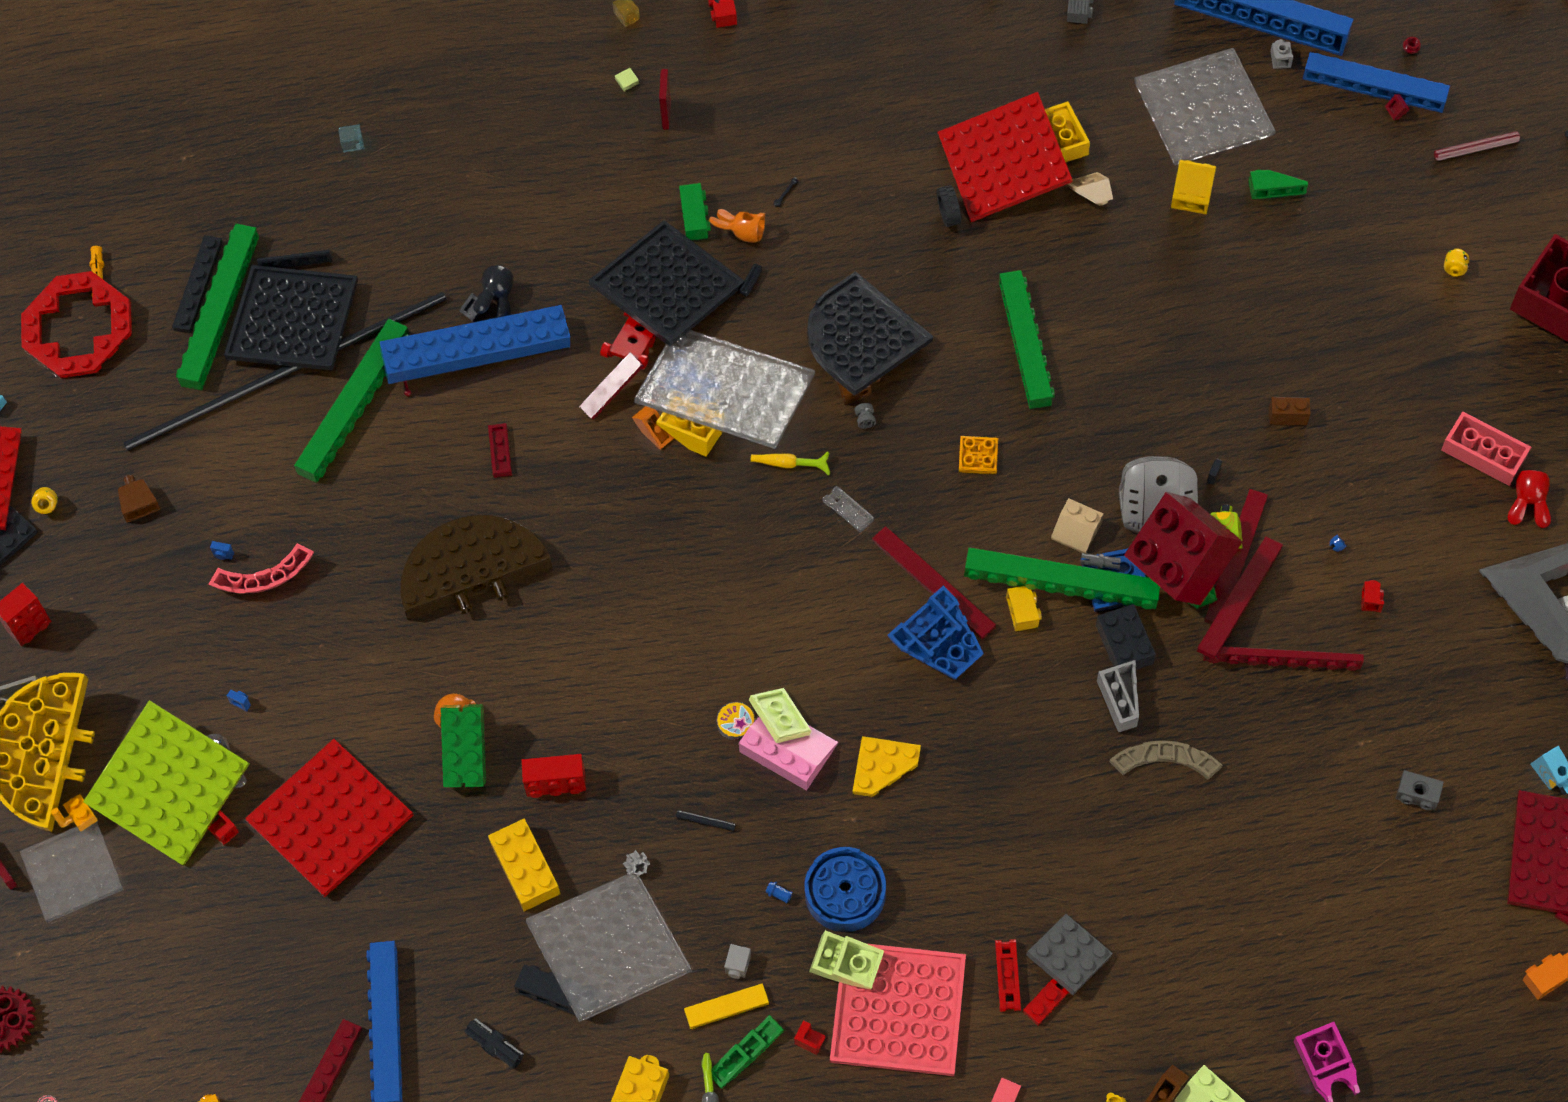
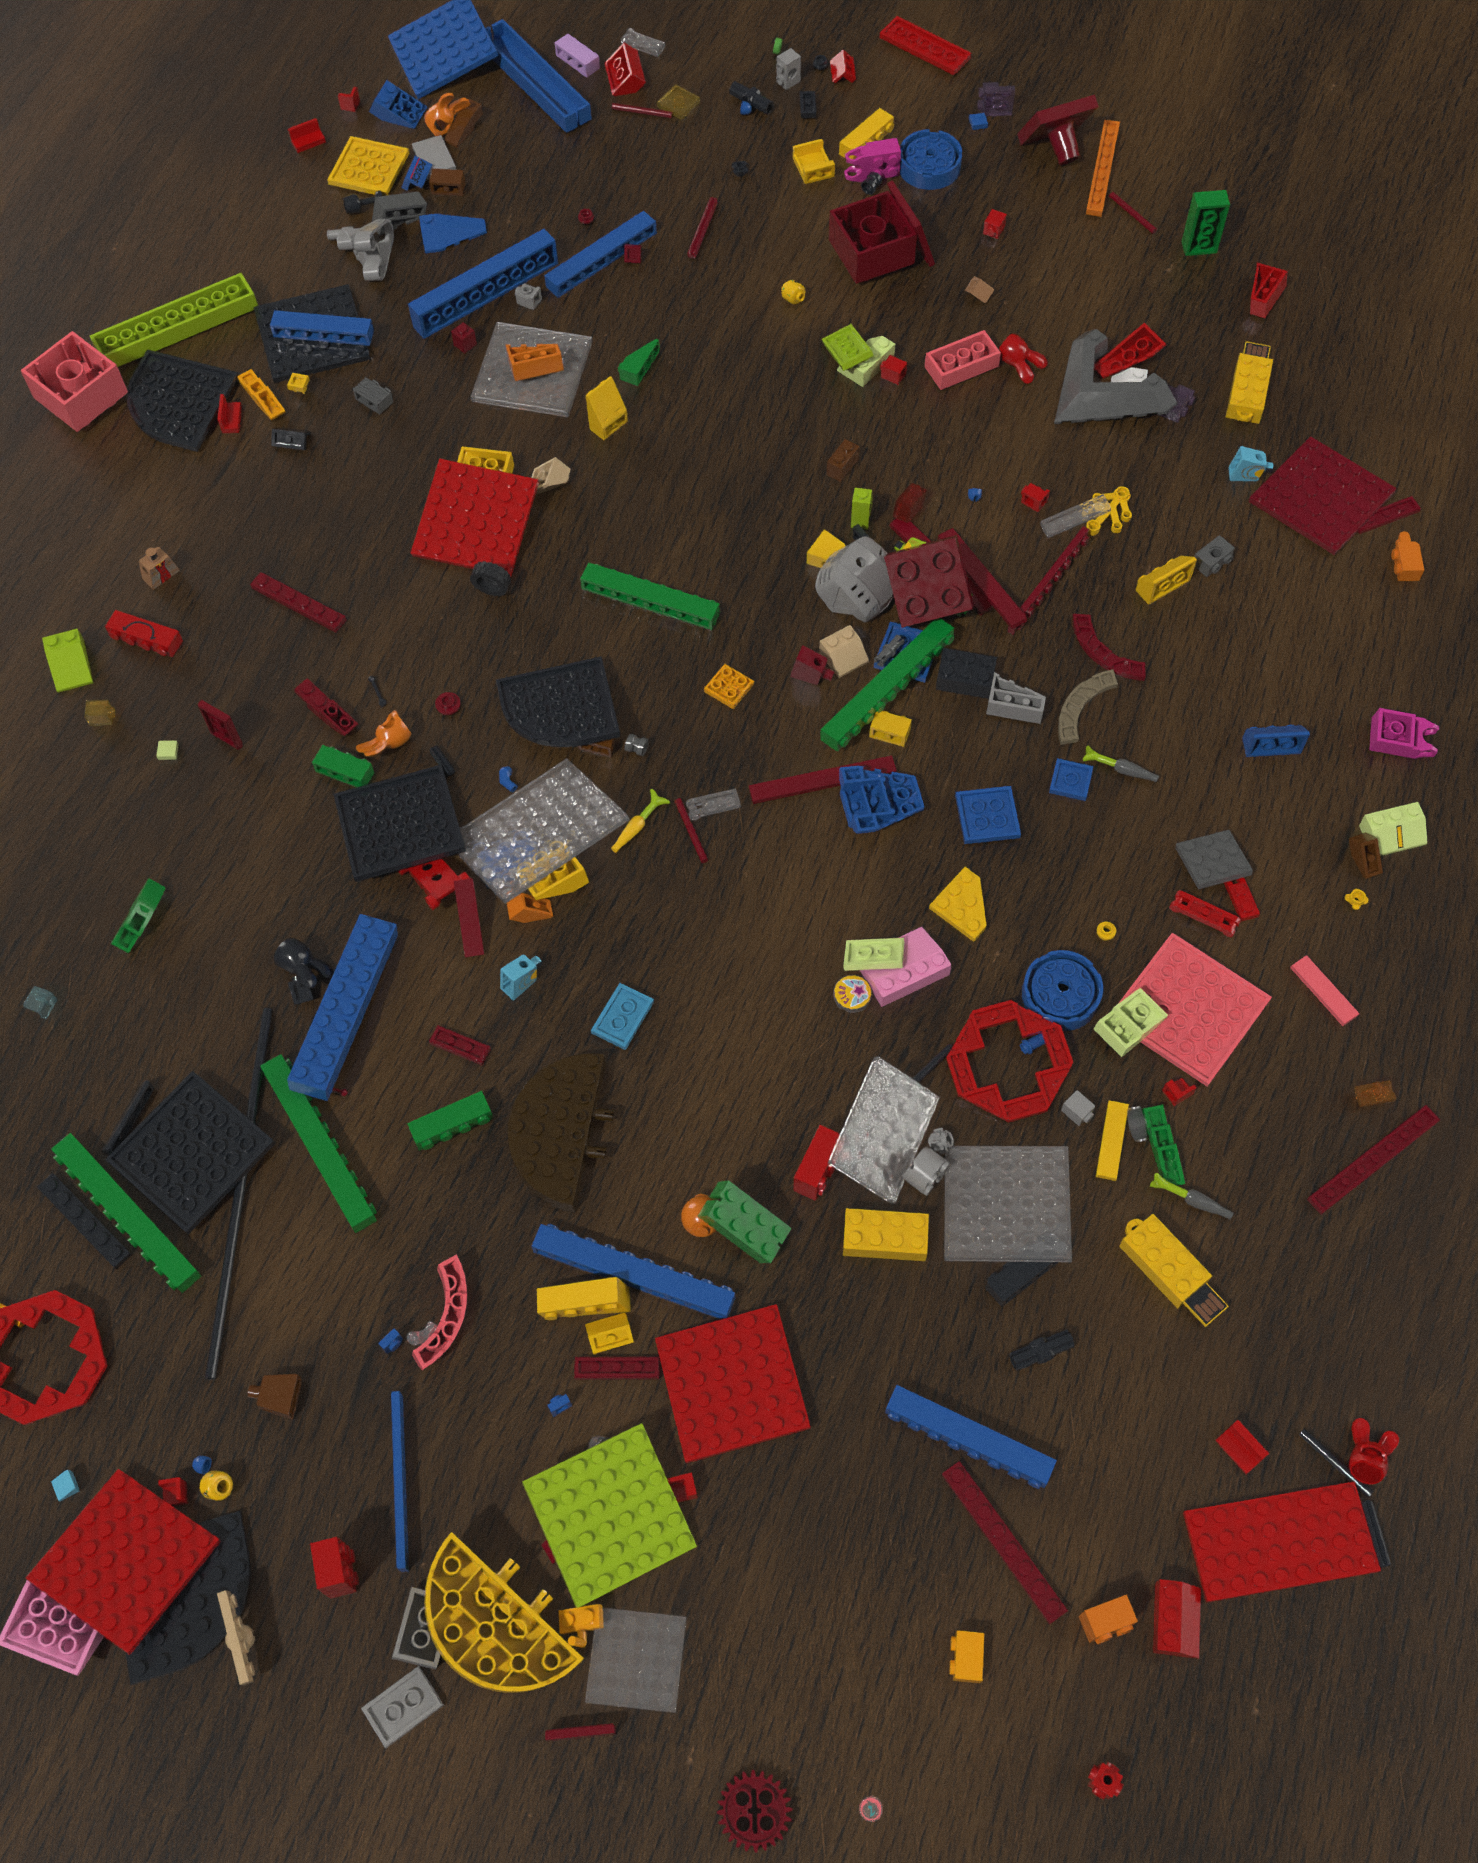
camera: 60 degrees left, 0 degrees up
(27, 477) = (174, 1491): none -> red panel
(57, 482) = (202, 1464): none -> blue hinge
(117, 623) = (401, 1530): none -> blue tile
(236, 567) = (420, 1337): none -> clear arm
(294, 725) = (616, 1368): none -> dark red tile
(318, 702) = (609, 1333): none -> yellow panel
(334, 667) = (583, 1298): none -> yellow wedge
(379, 691) = (634, 1272): none -> blue brick
(428, 482) = (450, 1120): none -> green brick
(465, 154) = (139, 915): none -> green slope
(585, 454) = (519, 975): none -> medium azure torso
(598, 864) = (926, 1170): none -> light grey brick
(599, 554) = (622, 1016): none -> dark azure plate
(614, 810) = (884, 1130): none -> clear plate
(740, 164) = (325, 708): none -> dark red slope
(747, 922) = (989, 1097): none -> red plate
(758, 1015) = (1137, 1123): none -> flat silver helmet
(770, 332) = (504, 777): none -> blue arm
(808, 250) = (447, 703): none -> dark red piece
(811, 507) = (691, 831): none -> dark red bar
(830, 82) = (298, 602): none -> dark red plate
(933, 903) = (1106, 935): none -> yellow plate
(987, 736) = (987, 815): none -> blue plate
(1039, 507) = (811, 667): none -> dark red torso
(1075, 789) = (1071, 779): none -> blue tile
(1118, 824) = (1121, 765): none -> dark grey piece
(1177, 447) = (823, 548): none -> yellow torso
(1193, 33) = (463, 337): none -> dark red brick
(1202, 100) = (534, 361): none -> orange wedge
(1234, 747) = (1103, 655): none -> dark red tile
(1239, 945) = (1274, 740): none -> blue slope
(1243, 454) = (861, 507): none -> lime slope
(1279, 491) = (909, 503): none -> clear red brick
(1358, 759) = (1166, 578): none -> yellow slope
(1374, 643) = (1075, 516): none -> clear plate
(1408, 670) = (1120, 496): none -> yellow plant
(1418, 342) = (847, 347): none -> lime plate
(1425, 370) = (865, 371): none -> yellowish green slope
(1430, 397) = (893, 369): none -> red brick

